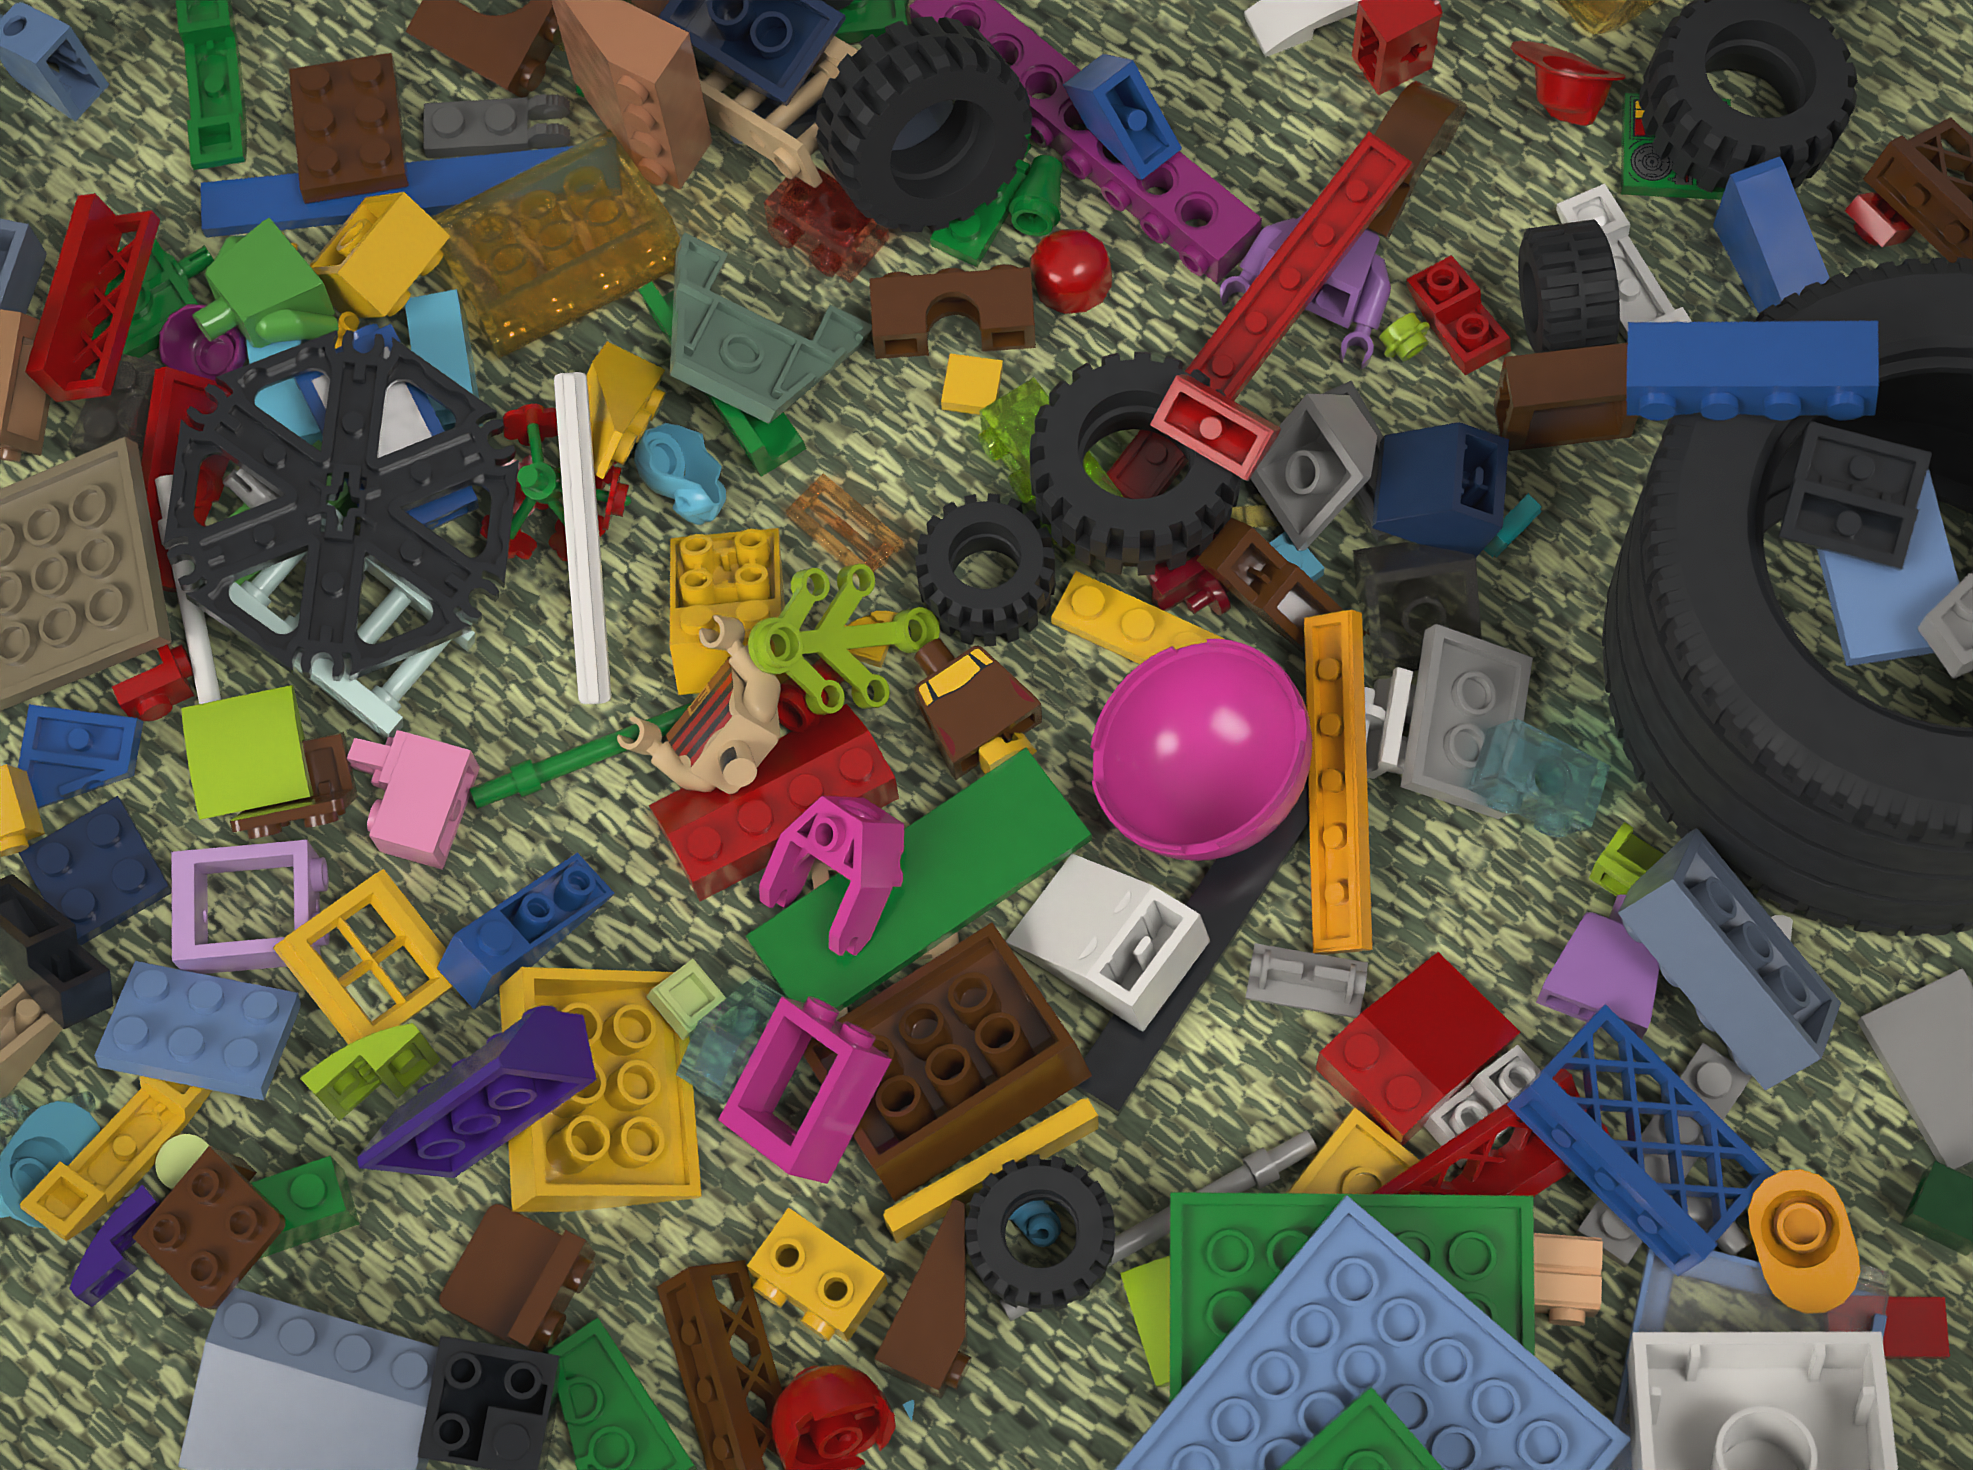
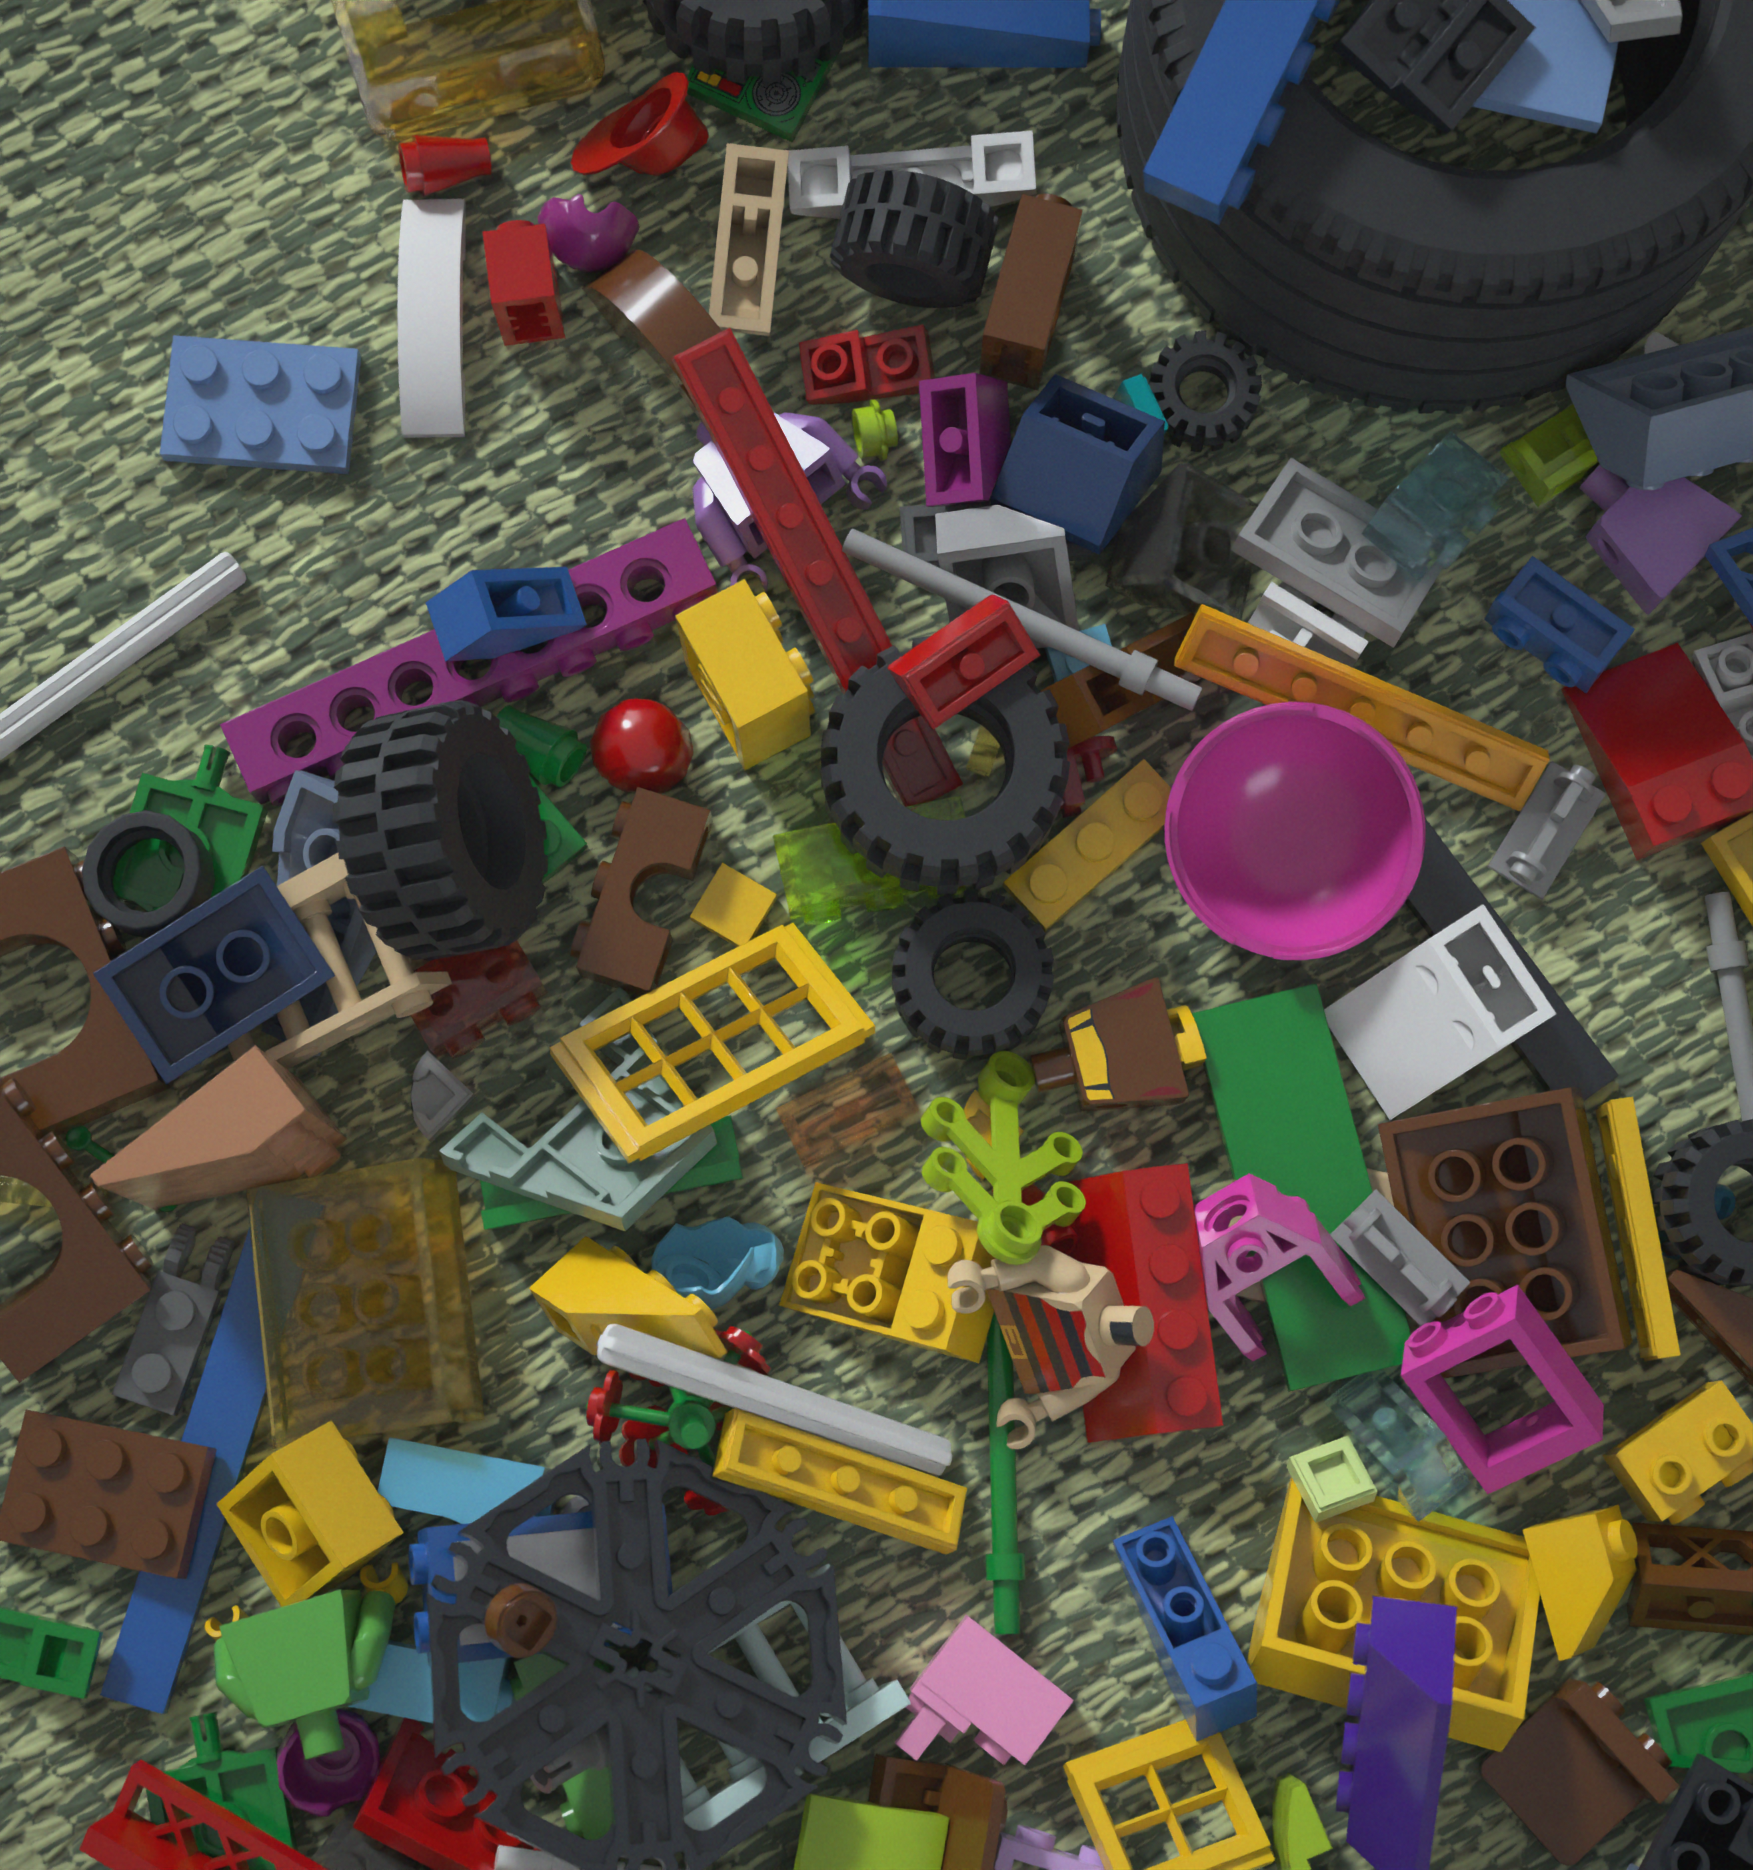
camera: 75 degrees left, 10 degrees up
(337, 397) = (520, 1620): none -> reddish brown tile
(541, 616) = (839, 1481): none -> yellow tile
(678, 1222) = (1581, 1573): none -> yellow slope
(737, 234) = (436, 1096): none -> light grey tile
(774, 326) = (608, 1098): none -> yellow piece
(885, 973) = (1400, 1259): none -> light grey hinge
(1149, 291) = (746, 674): none -> yellow brick
(1278, 574) = (1136, 671): none -> light grey bar
(1426, 393) = (963, 437): none -> magenta slope
(1458, 70) = (586, 238): none -> magenta hair
(1487, 921) = (1557, 625): none -> blue bracket
(1513, 177) = (748, 238): none -> tan slope
(1562, 540) = (1216, 358): none -> black tyre

